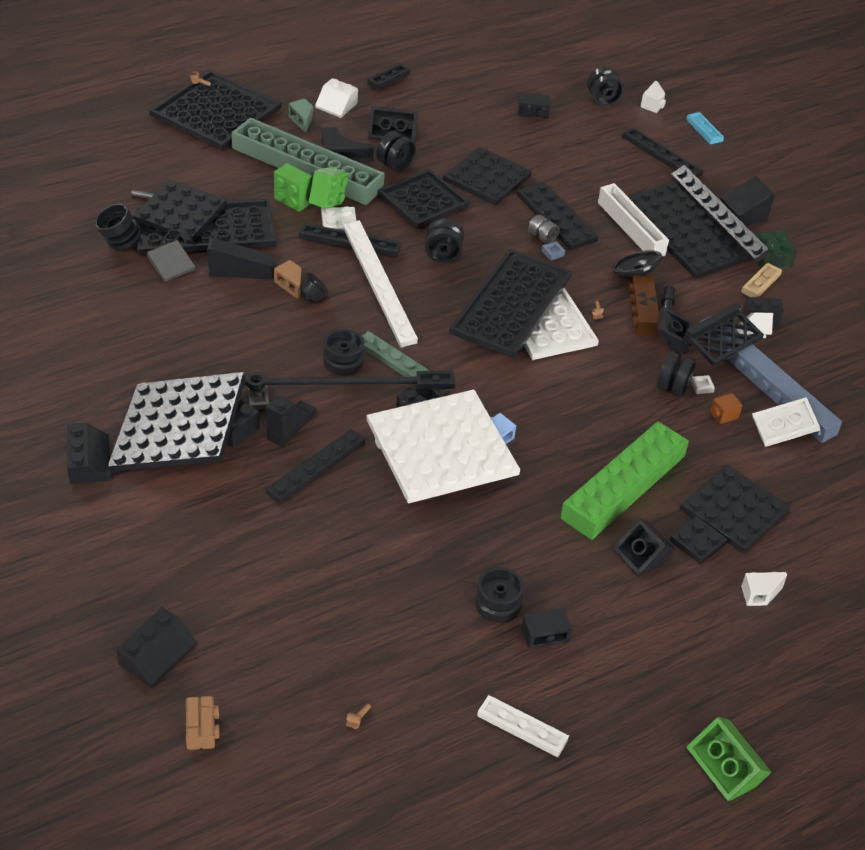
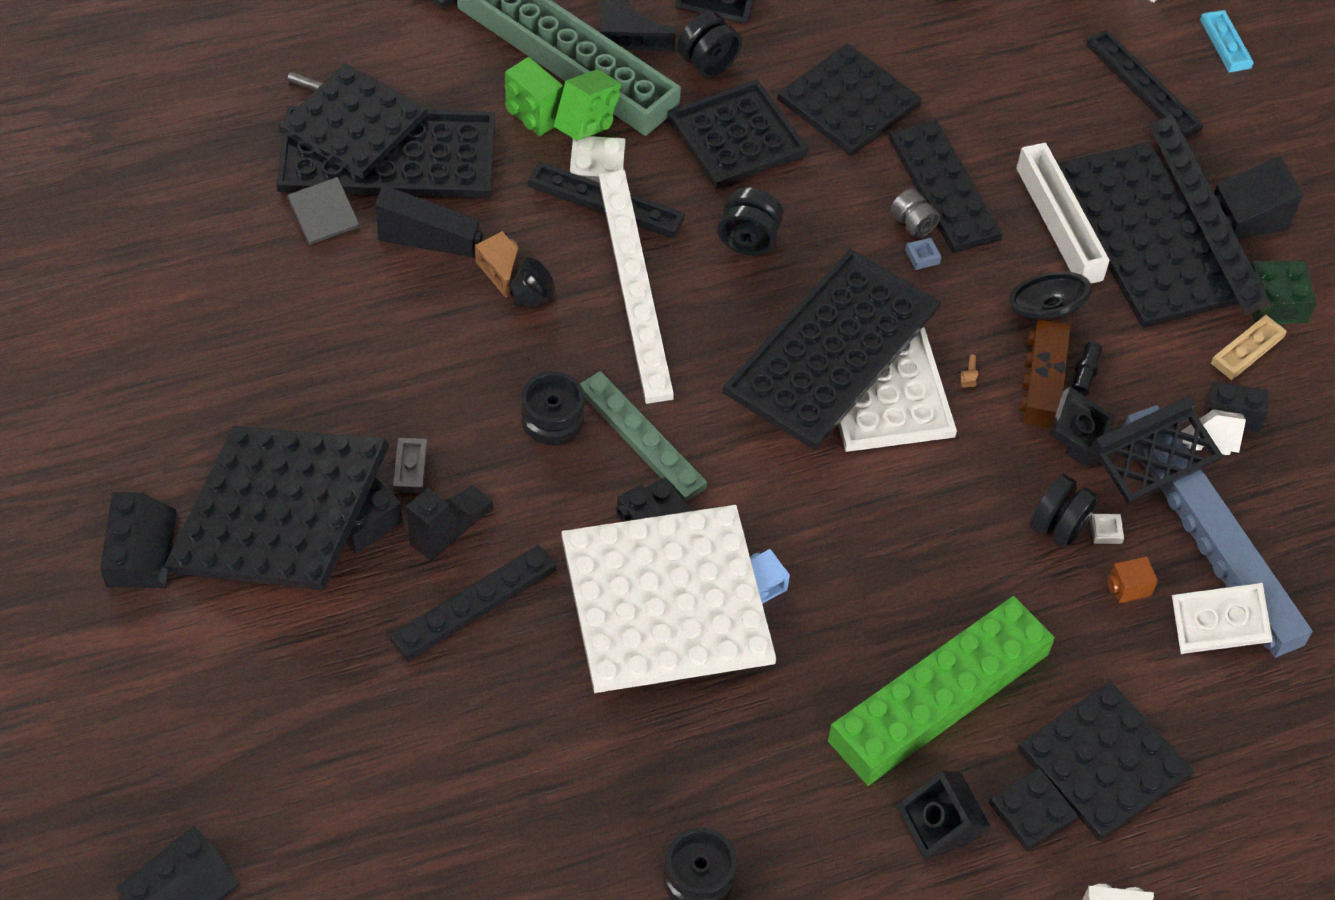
camera: 10 degrees right, 10 degrees up
(118, 226) = (251, 144): black wheel -> none
(423, 379) = (665, 475): black bar -> none

